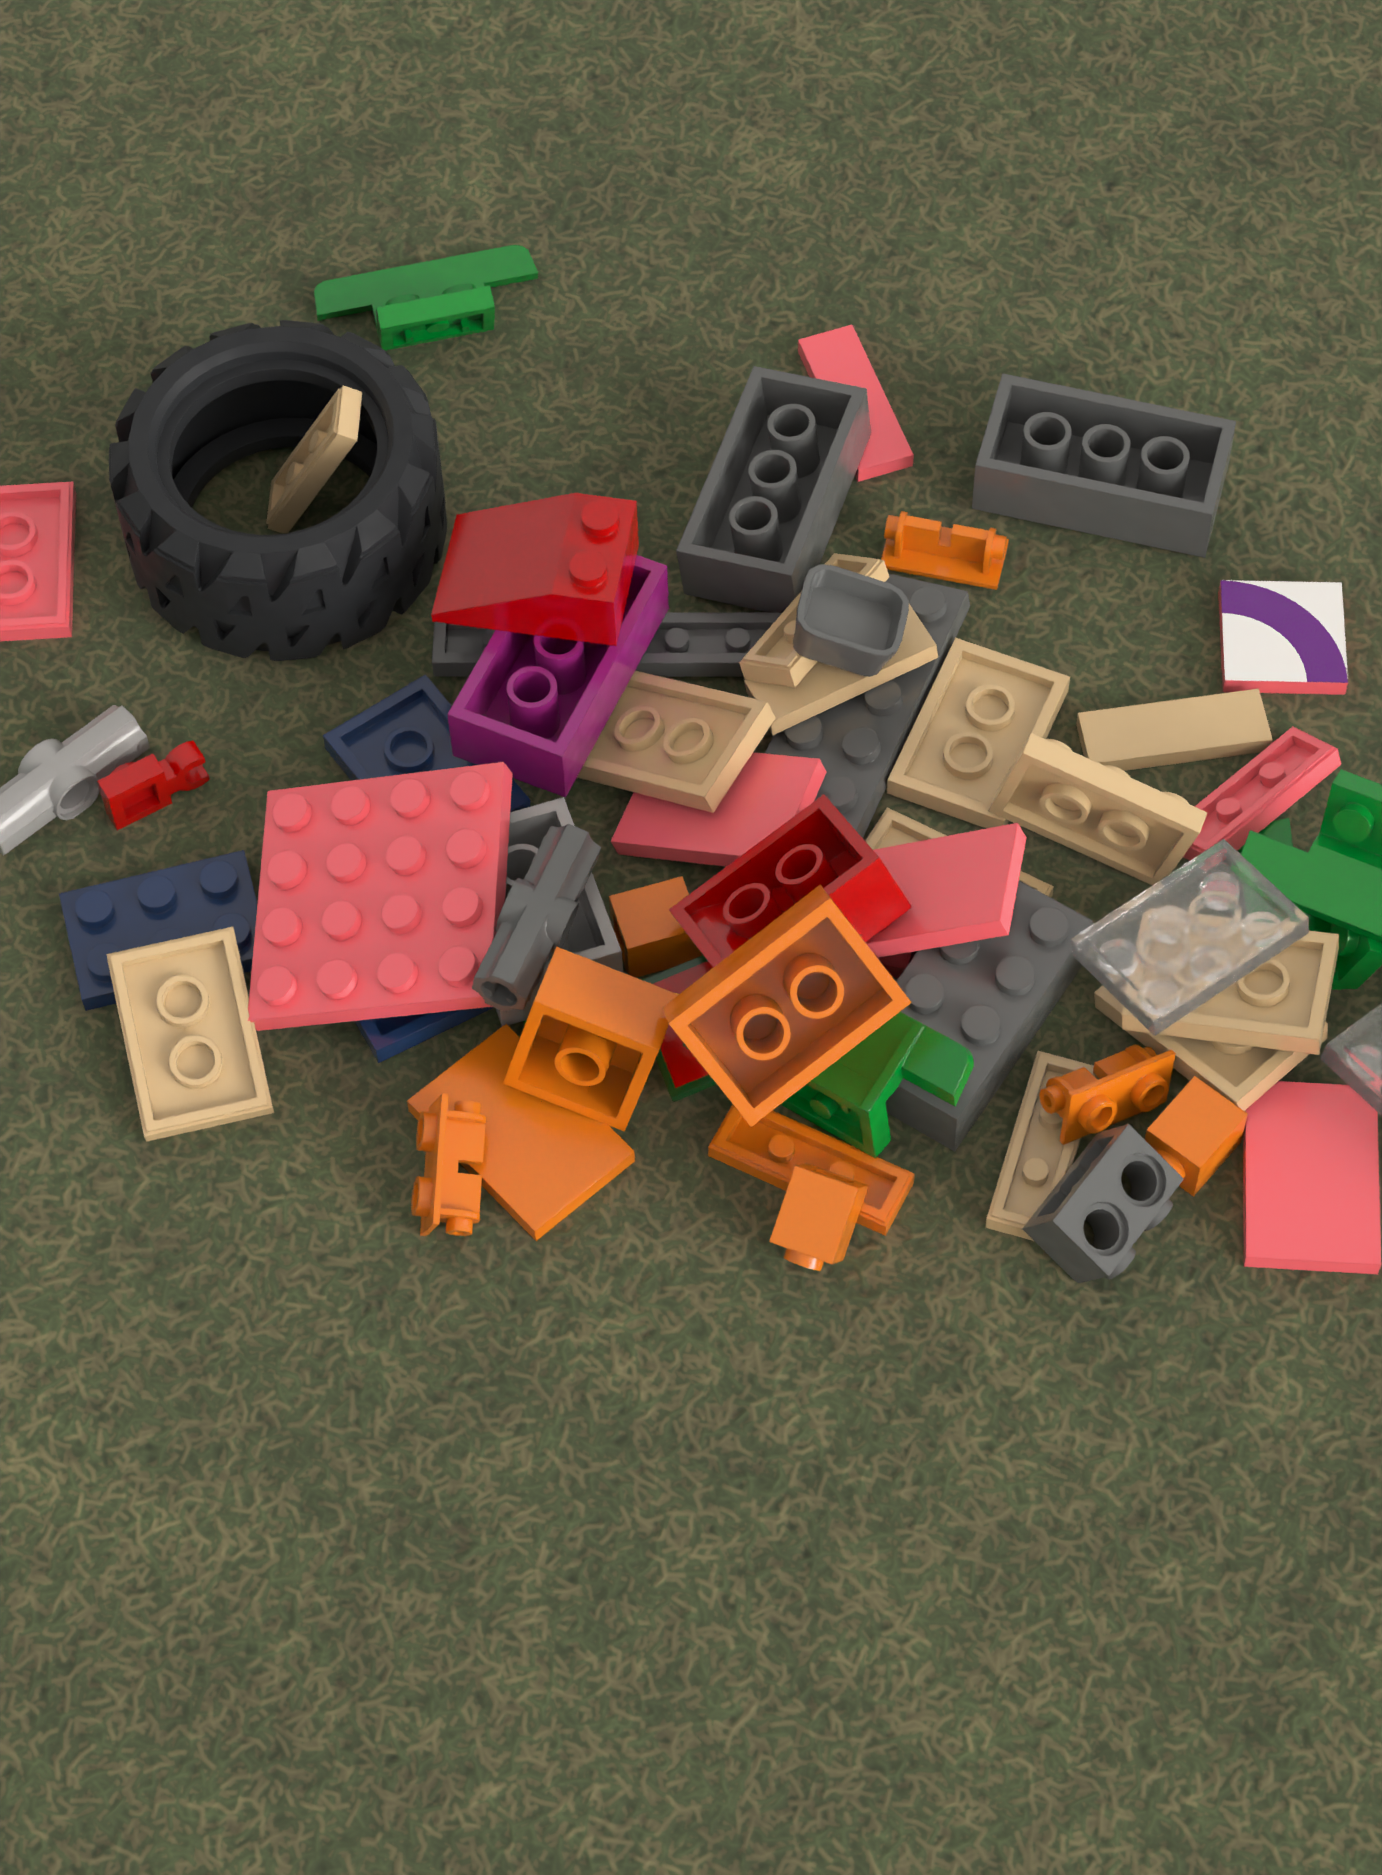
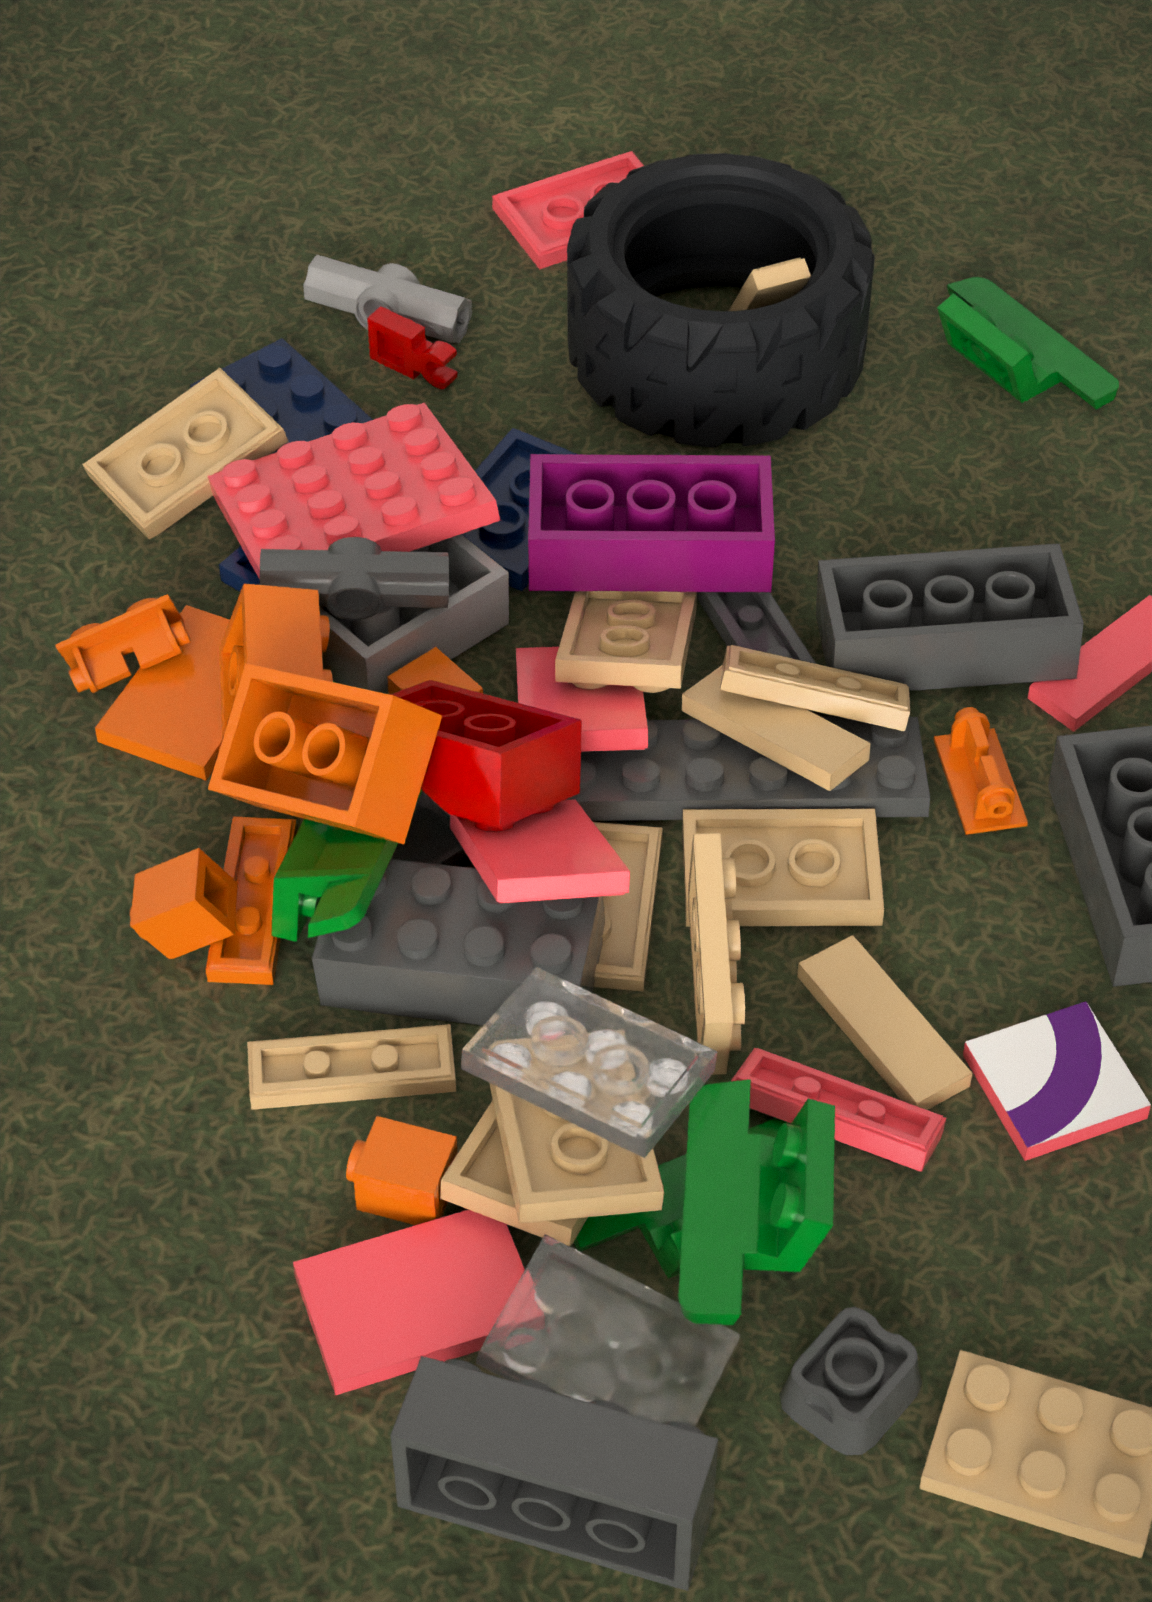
camera: 65 degrees right, 10 degrees down
(542, 568) = (708, 458): red slope -> none
(849, 620) = (800, 684): dark grey piece -> none
(1095, 1193) = (291, 1102): dark grey brick -> none
(1126, 1086) = (397, 1070): orange hinge -> none

